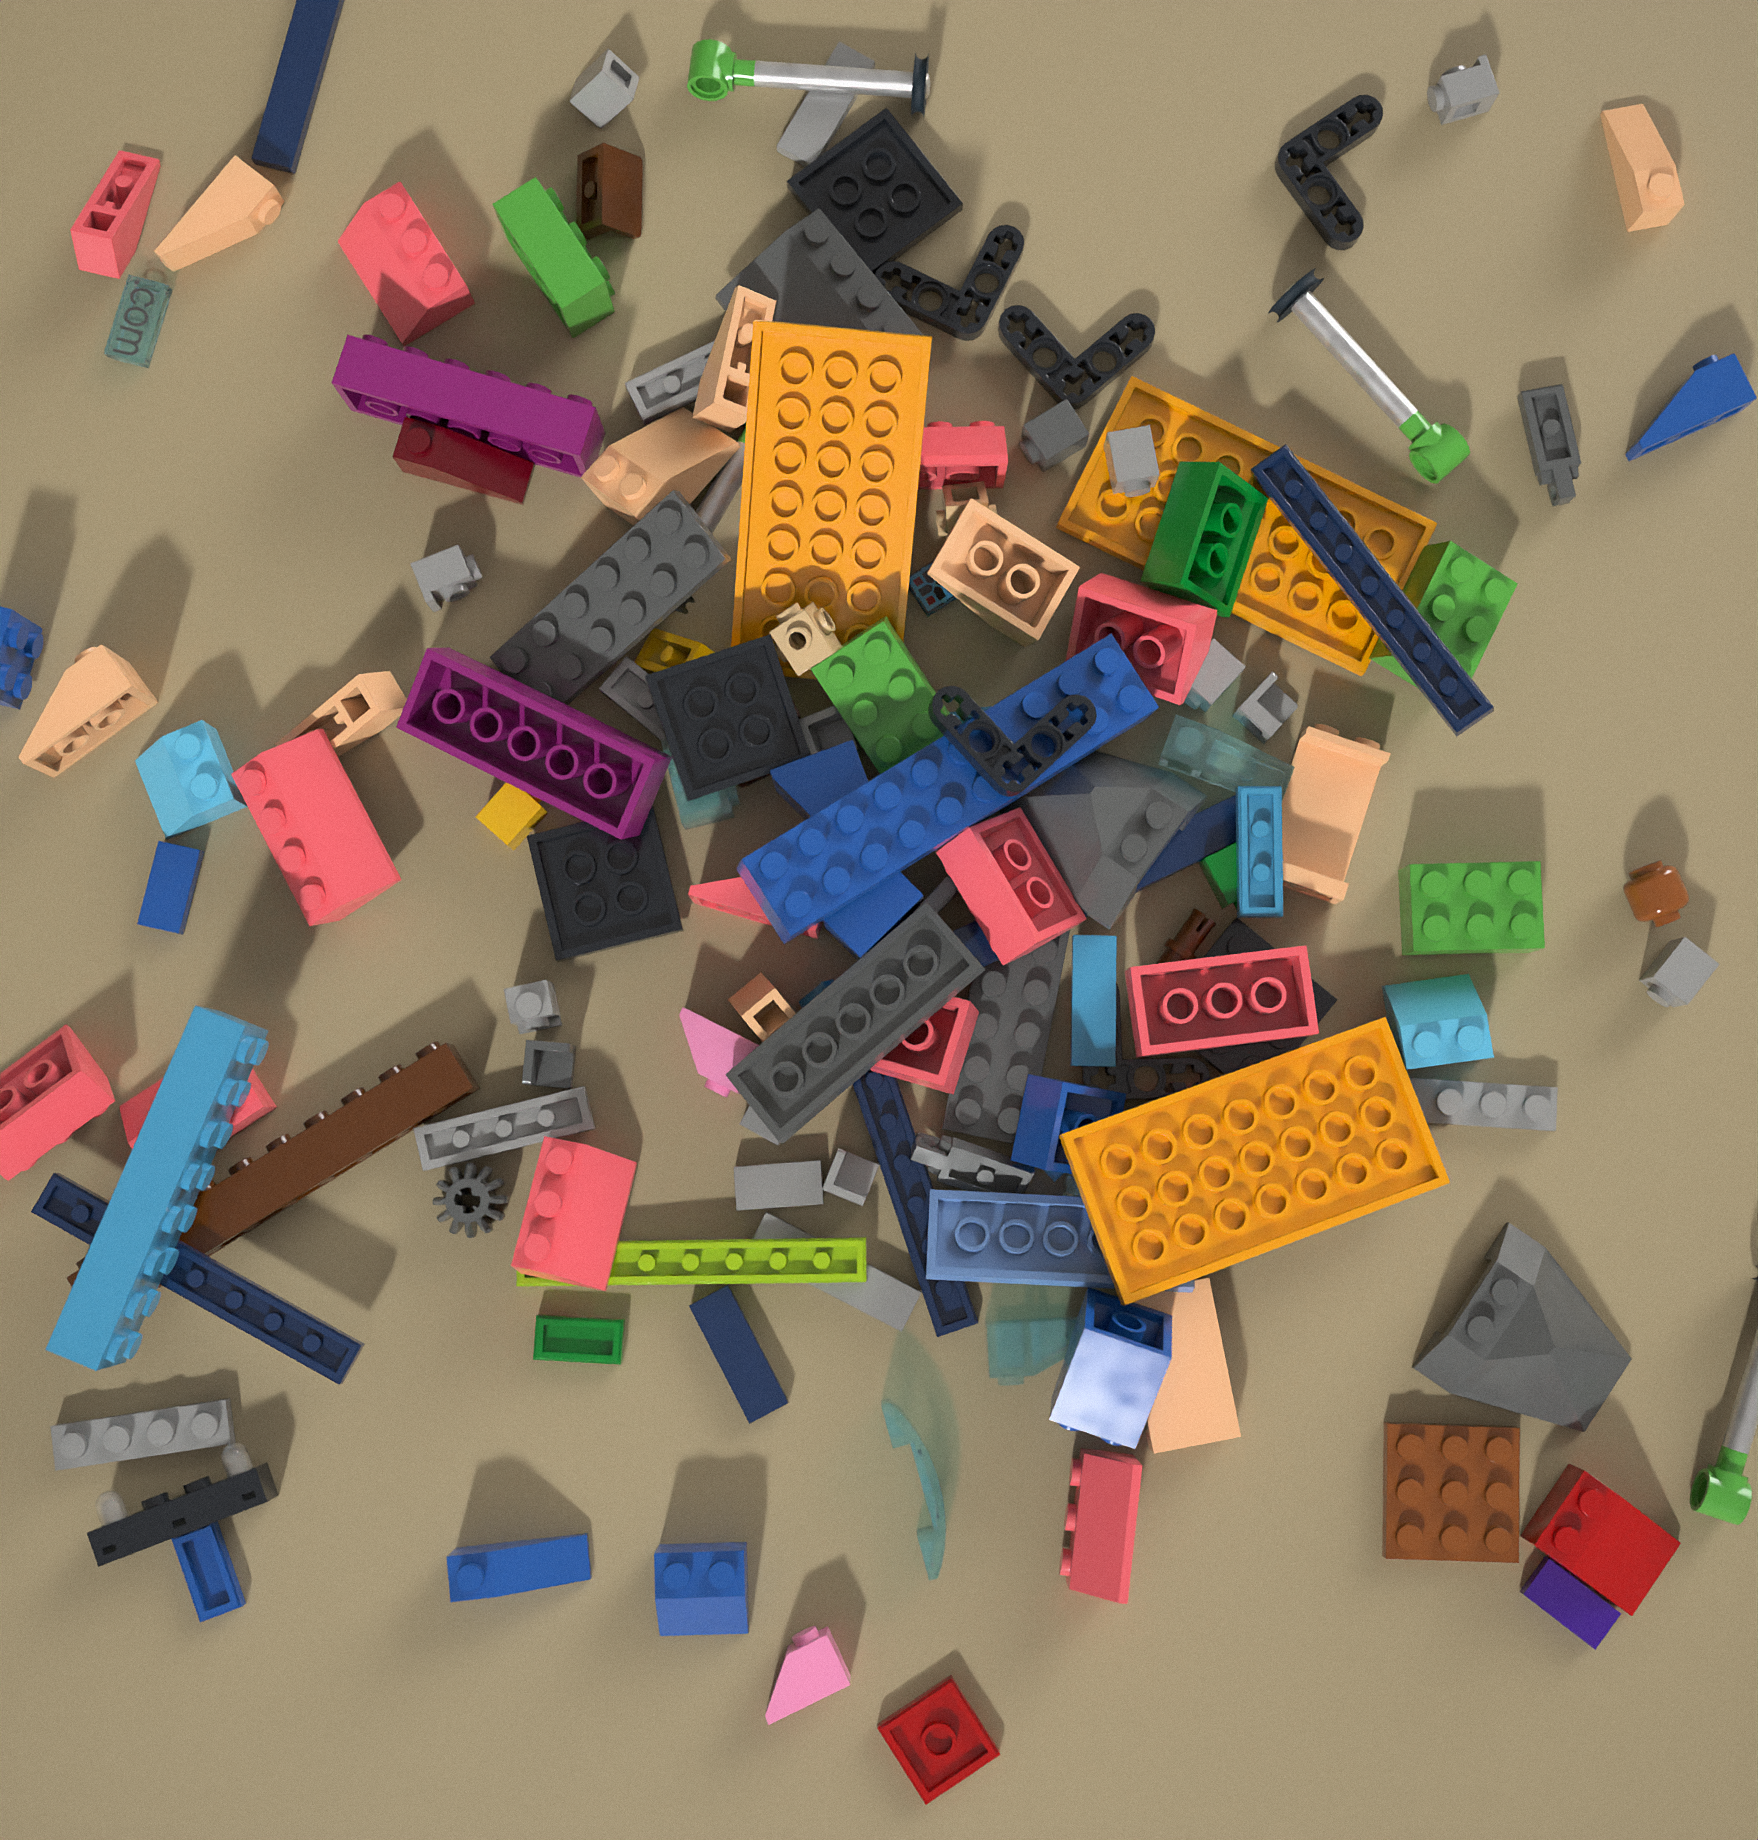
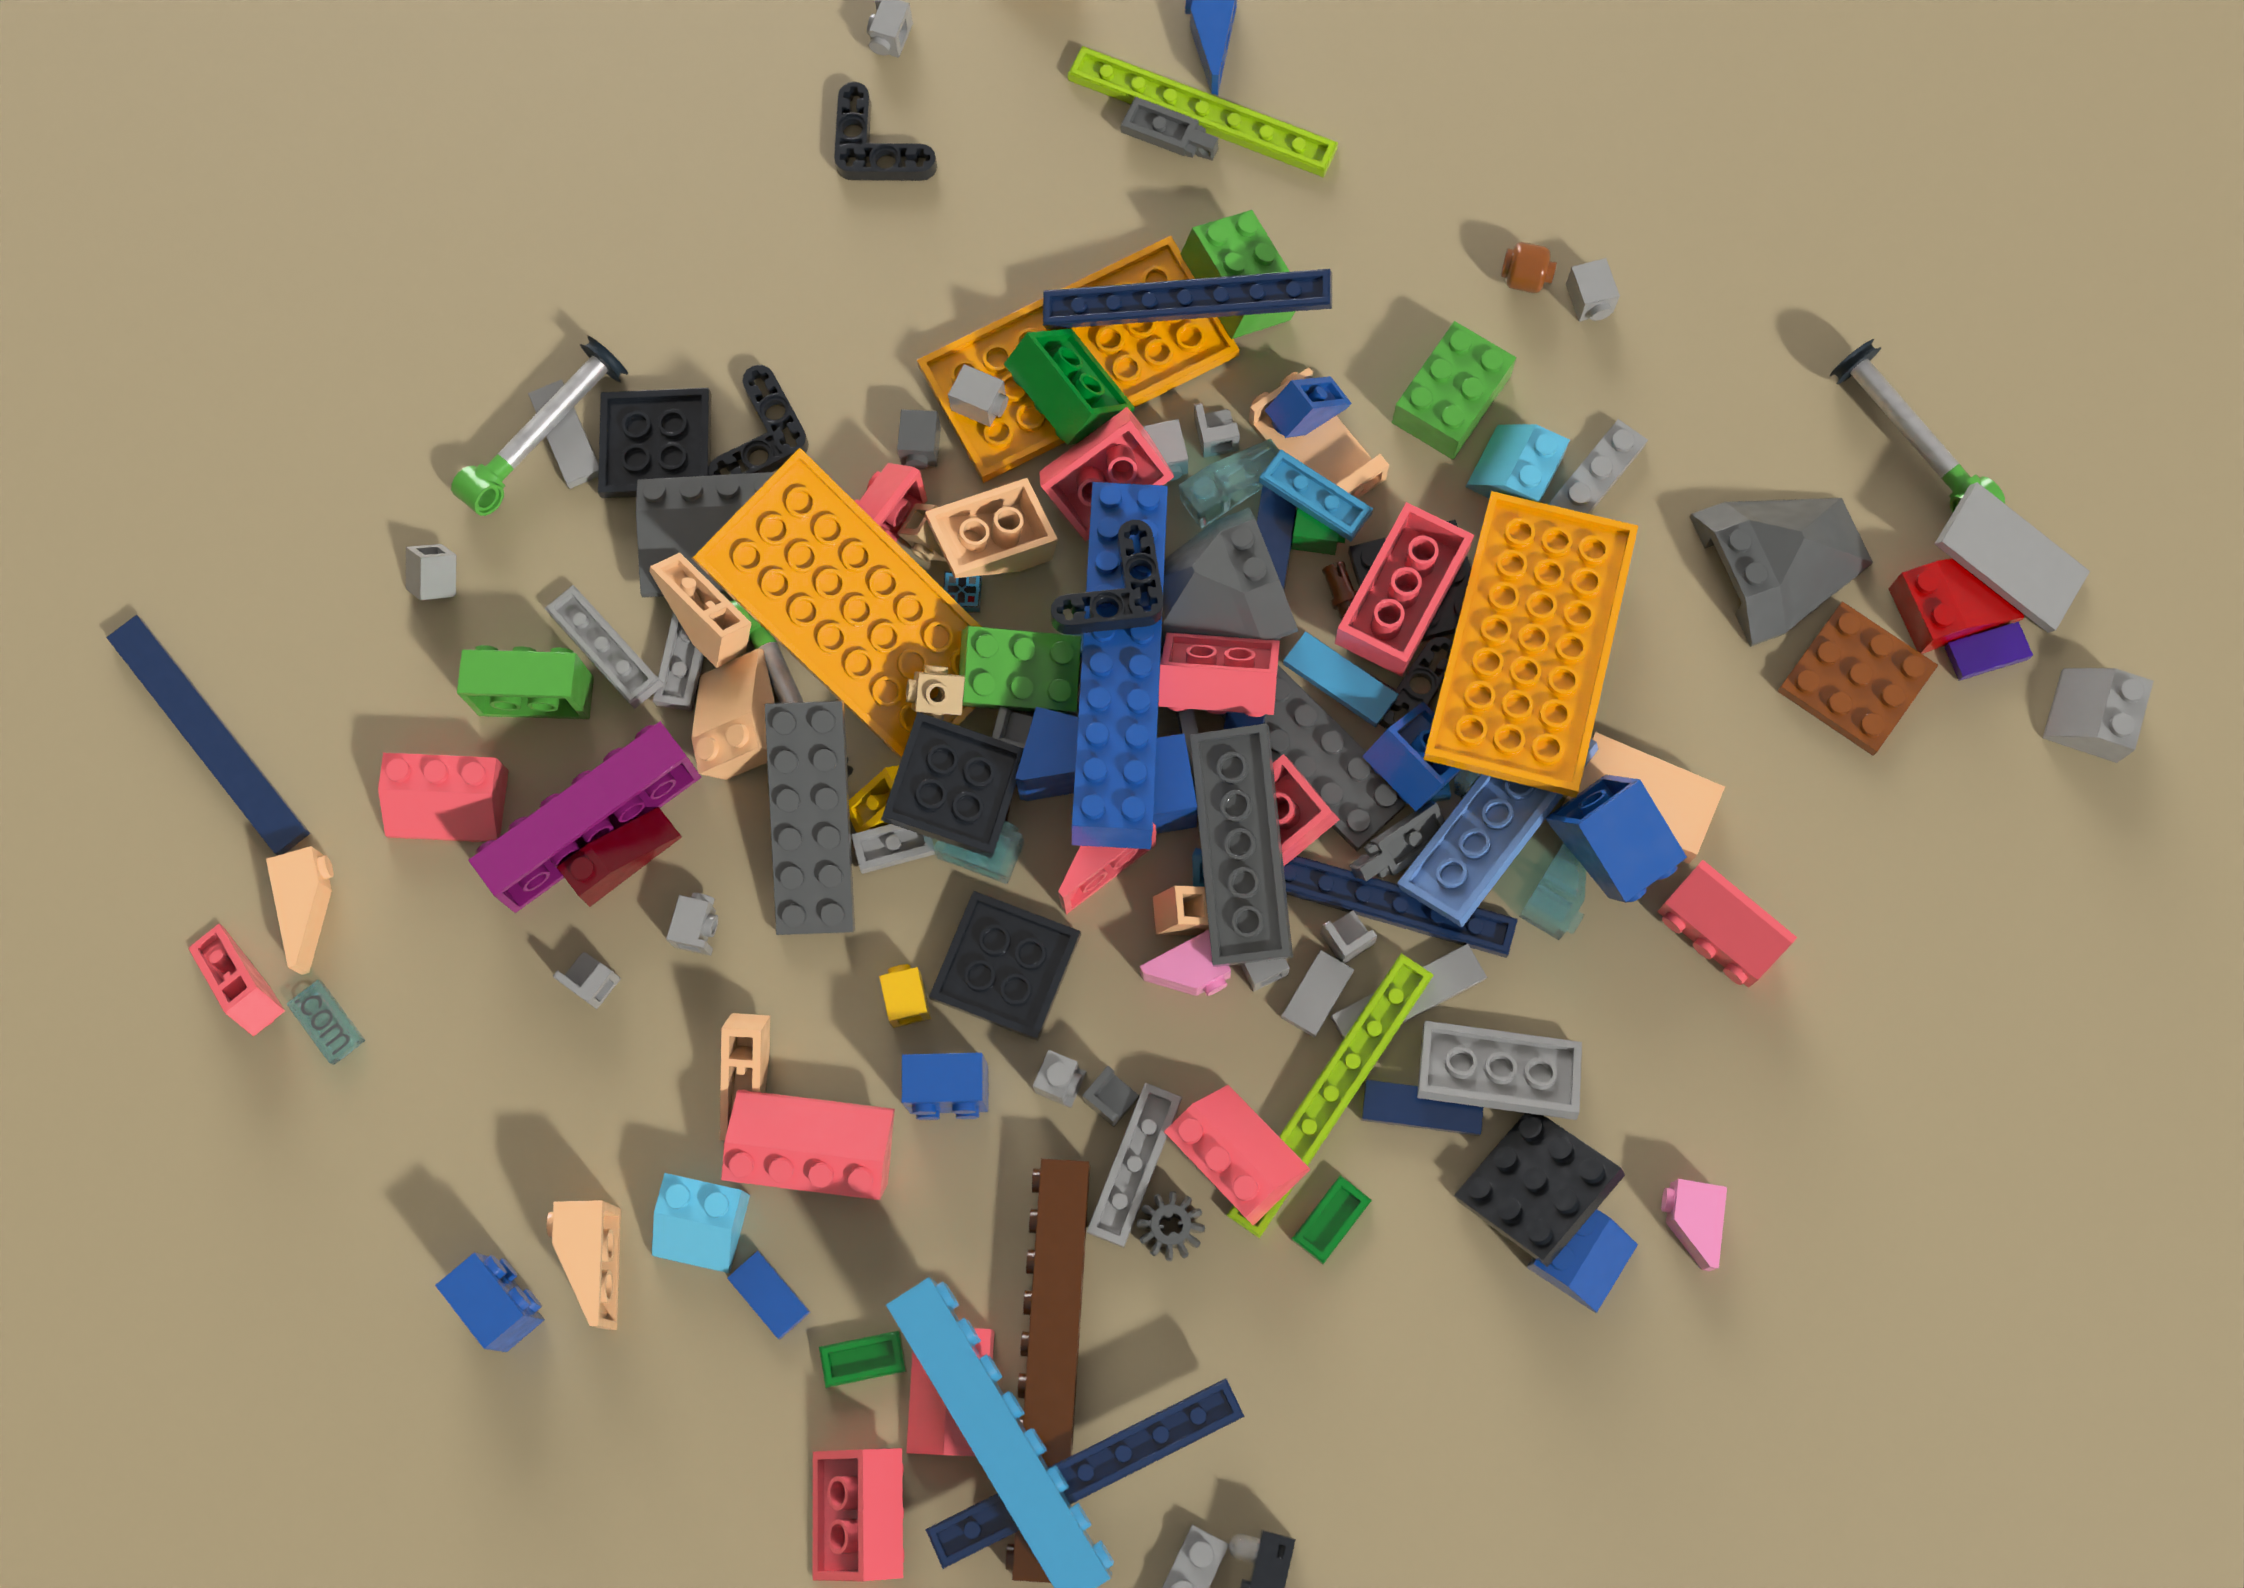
camera: 50 degrees left, 10 degrees down
(163, 1002) = (862, 1359): none -> green tile
(332, 521) = (589, 980): none -> light grey panel
(452, 909) = (945, 1085): none -> blue brick
(517, 1566) = (1473, 1382): blue slope -> none
(533, 742) = (866, 938): magenta brick -> none
(609, 192) = (504, 618): reddish brown panel -> none
(644, 299) = (604, 646): none -> light grey tile
(732, 1511) = (1539, 1186): none -> black plate
(819, 1403) = (1500, 1070): none -> light grey plate
(931, 1537) = (1657, 1057): clear light blue slope -> none
(938, 1739) = (1808, 1157): red tile -> none
(1066, 366) = (876, 399): black beam -> none
(1351, 779) = (1306, 405): none -> blue slope
(1434, 447) = (1117, 204): piece -> none
(1580, 1749) = (2098, 711): none -> light grey slope
(1601, 466) = (1215, 114): none -> lime tile
(1682, 1567) = (2012, 557): none -> light grey tile

